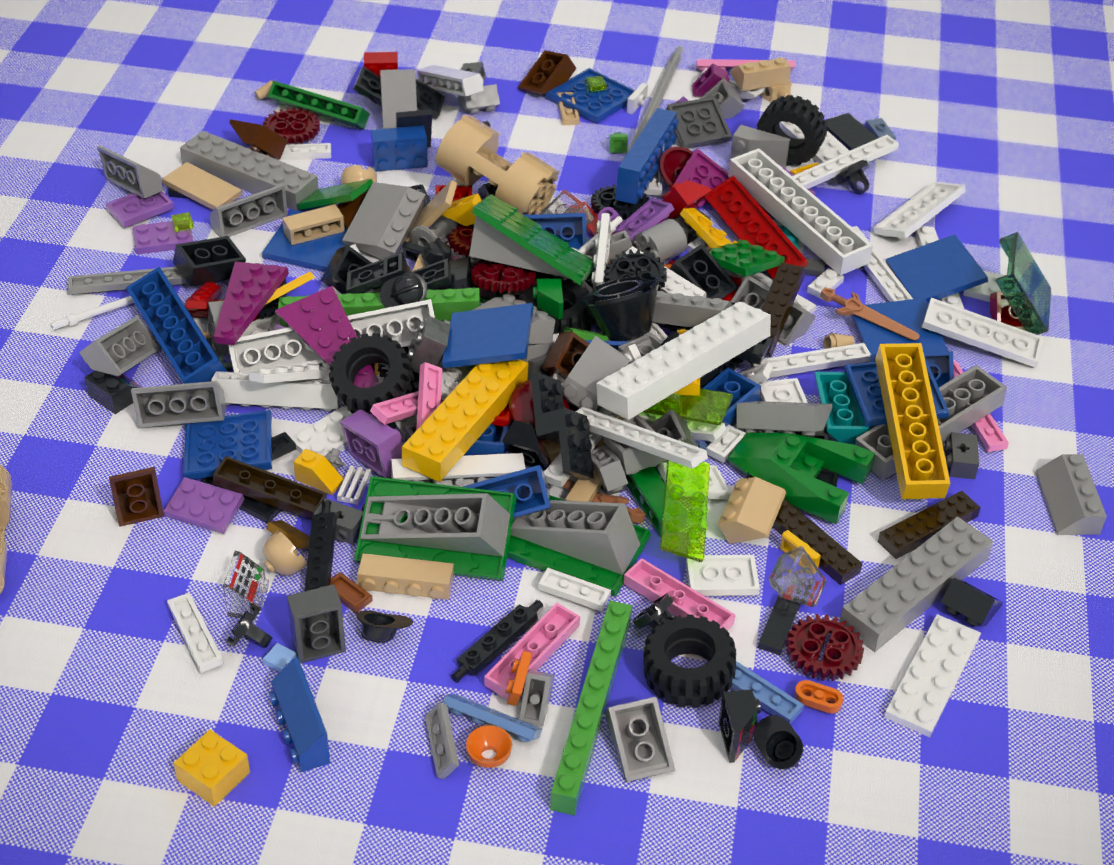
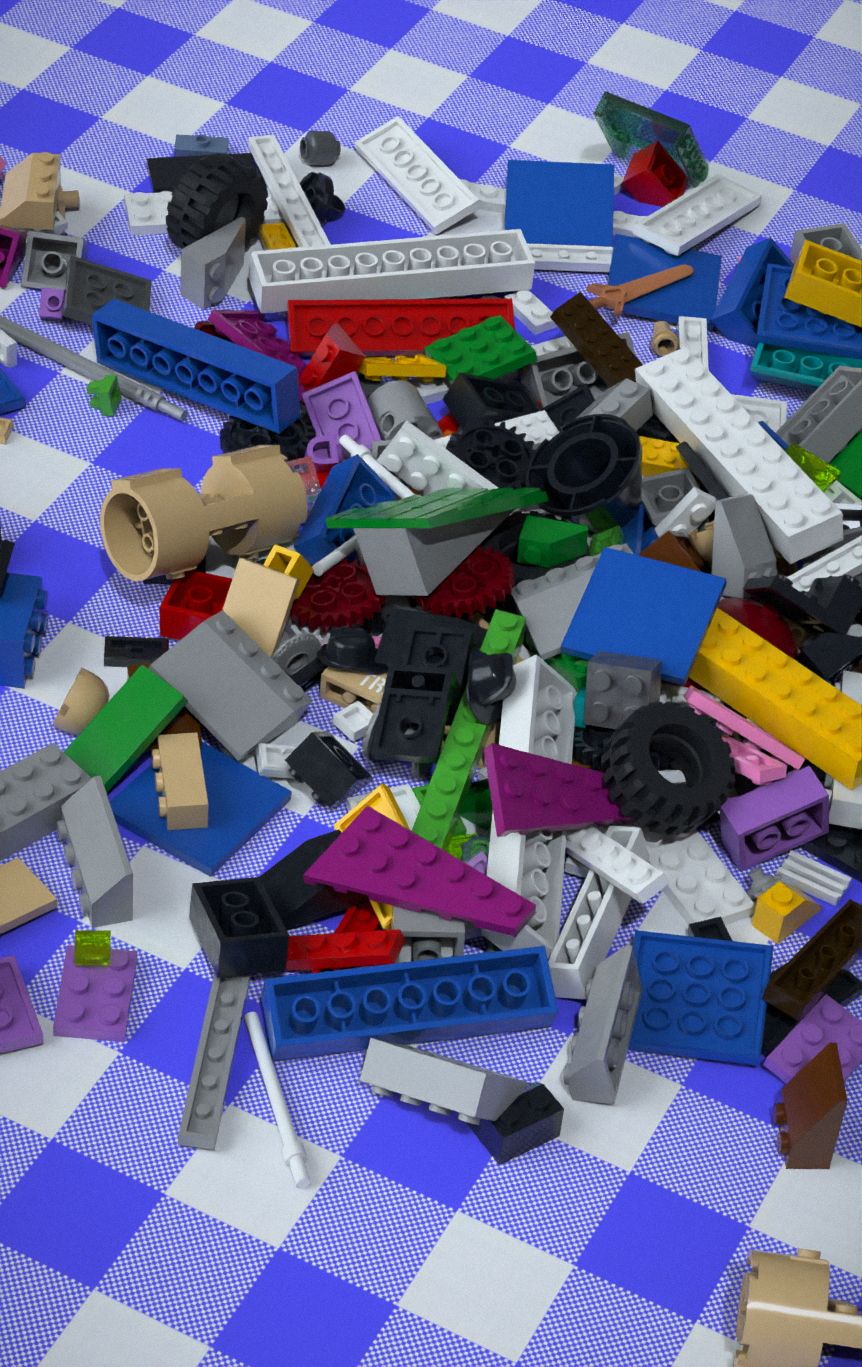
camera: 75 degrees left, 0 degrees up
(914, 169) = (319, 148): none -> dark grey head

